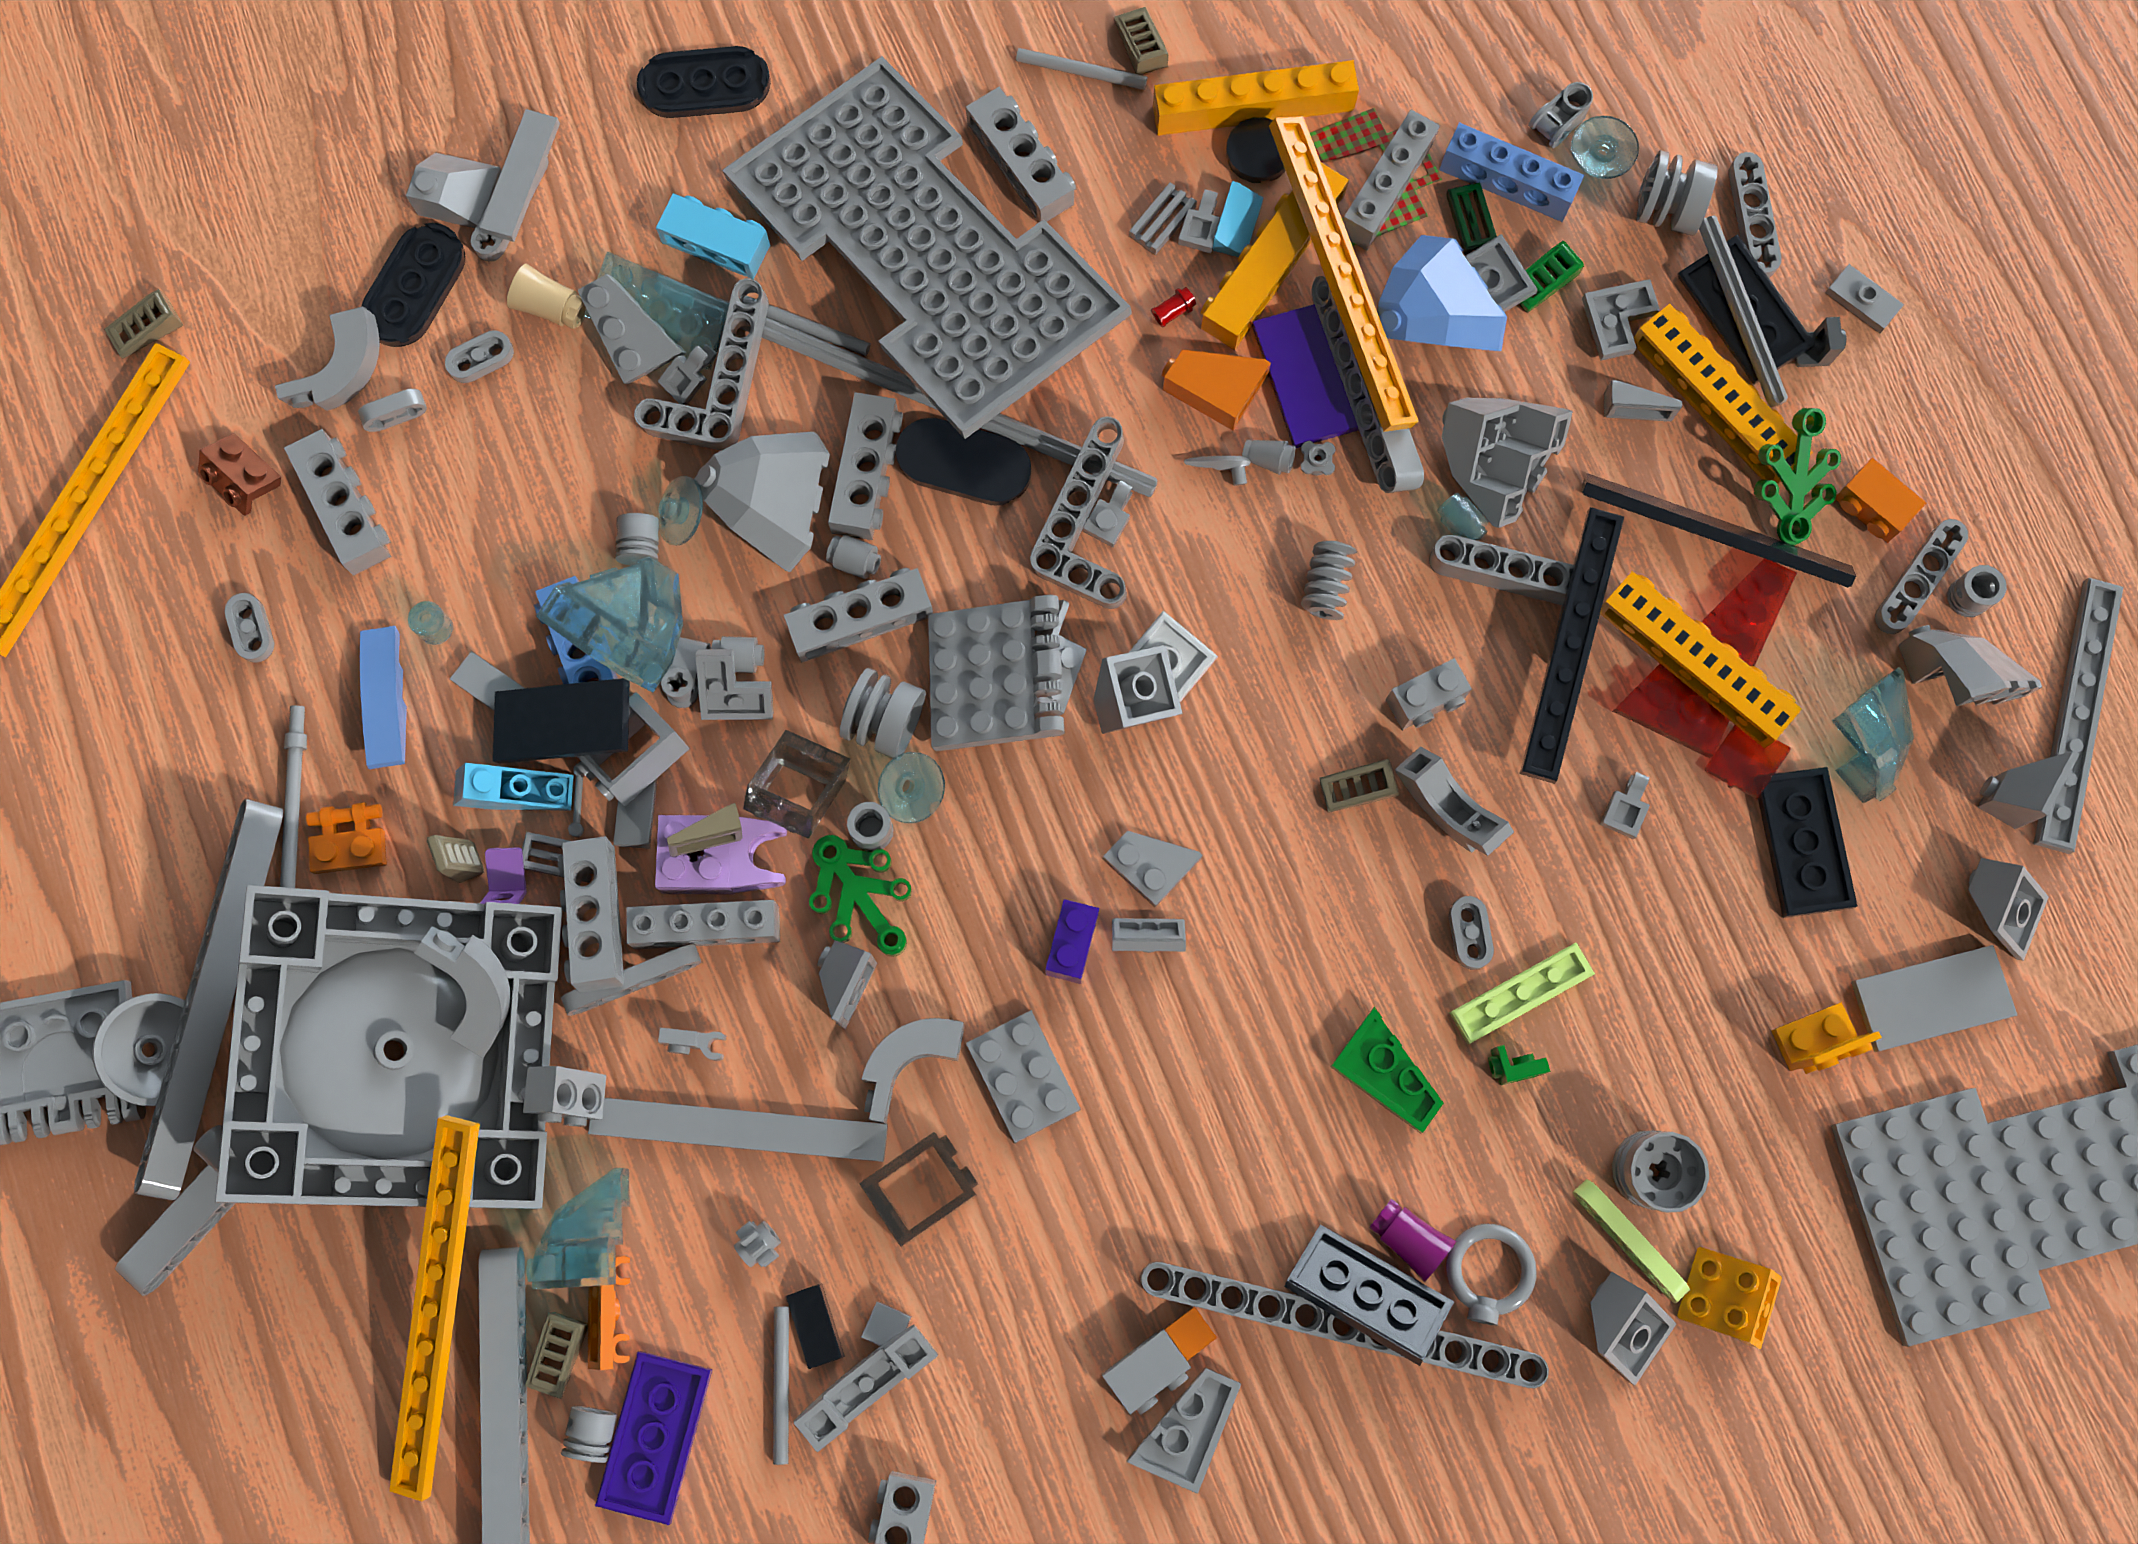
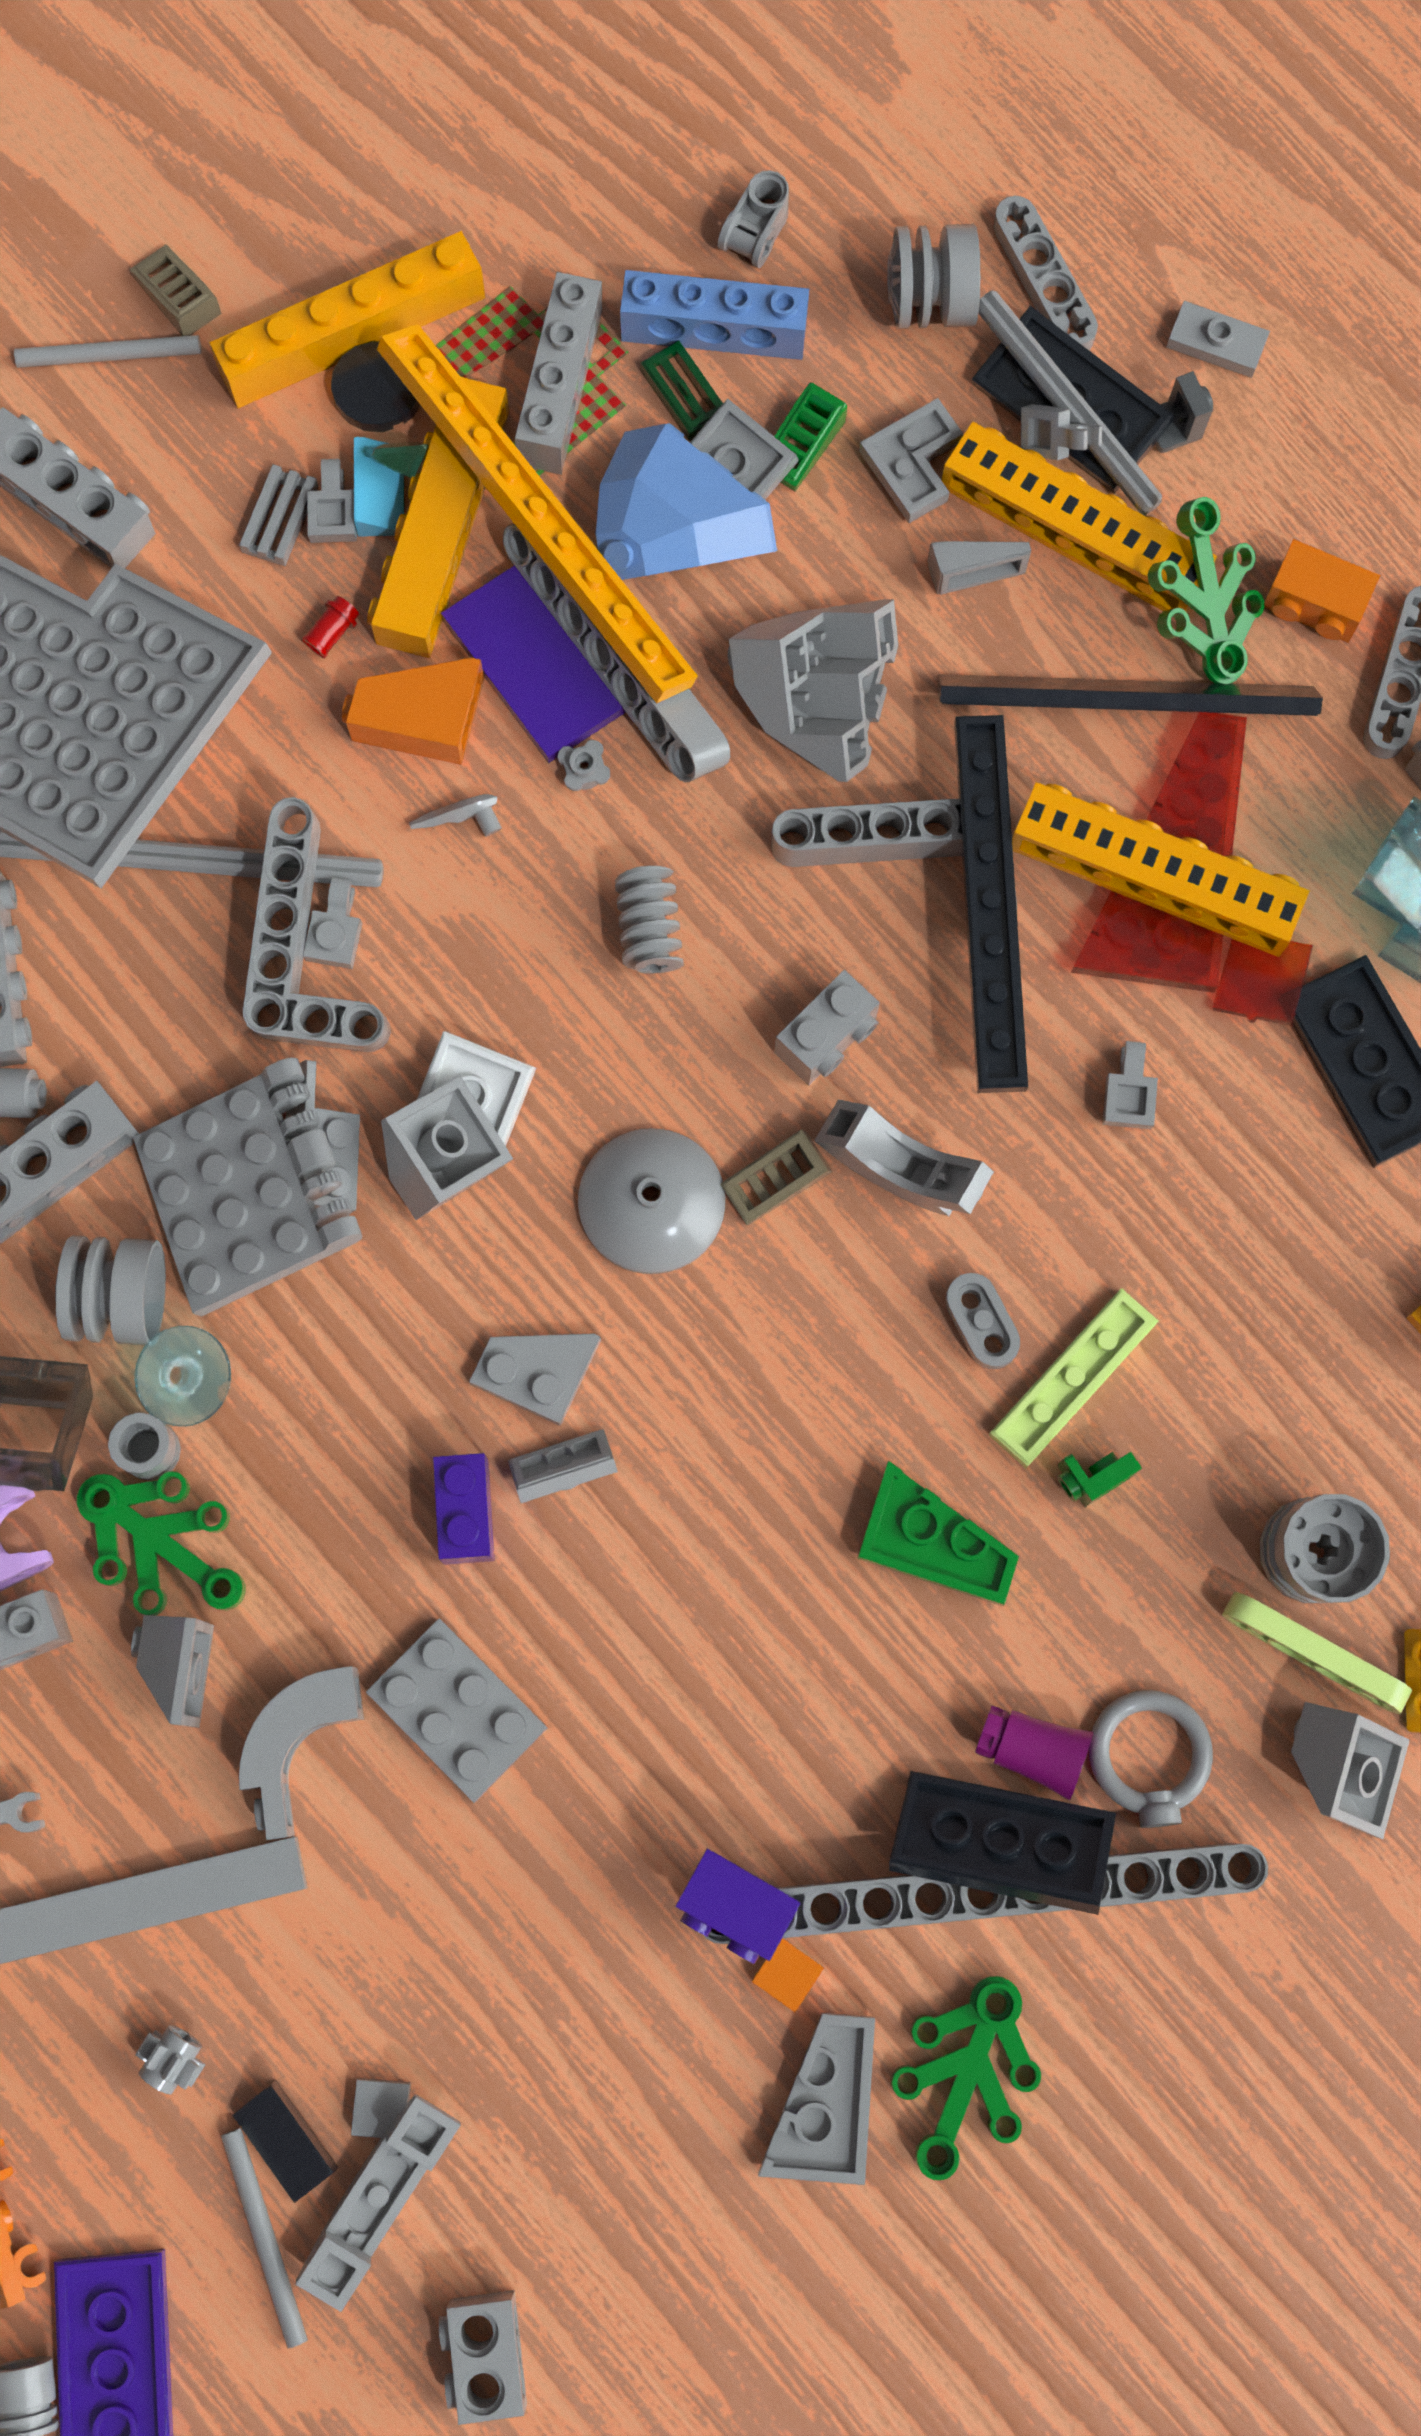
camera: 20 degrees left, 0 degrees up
(887, 1209) = (330, 1950): clear smoke window -> none
(975, 468) = (128, 922): black tile -> none
(1147, 1372) = (746, 2047): light grey brick -> none
(1173, 1273) = (737, 1906): none -> dark purple brick
(1260, 205) = (399, 457): none -> clear green slope
(1263, 797) = (658, 1233): none -> light grey dish
(1270, 455) = (520, 781): light grey cone -> none
(1296, 1441) = (971, 2067): none -> green plant
(1463, 518) = (797, 783): clear light blue brick -> none
(1608, 135) = (829, 230): clear light blue dish -> none
(1723, 329) = (1052, 435): none -> light grey plate

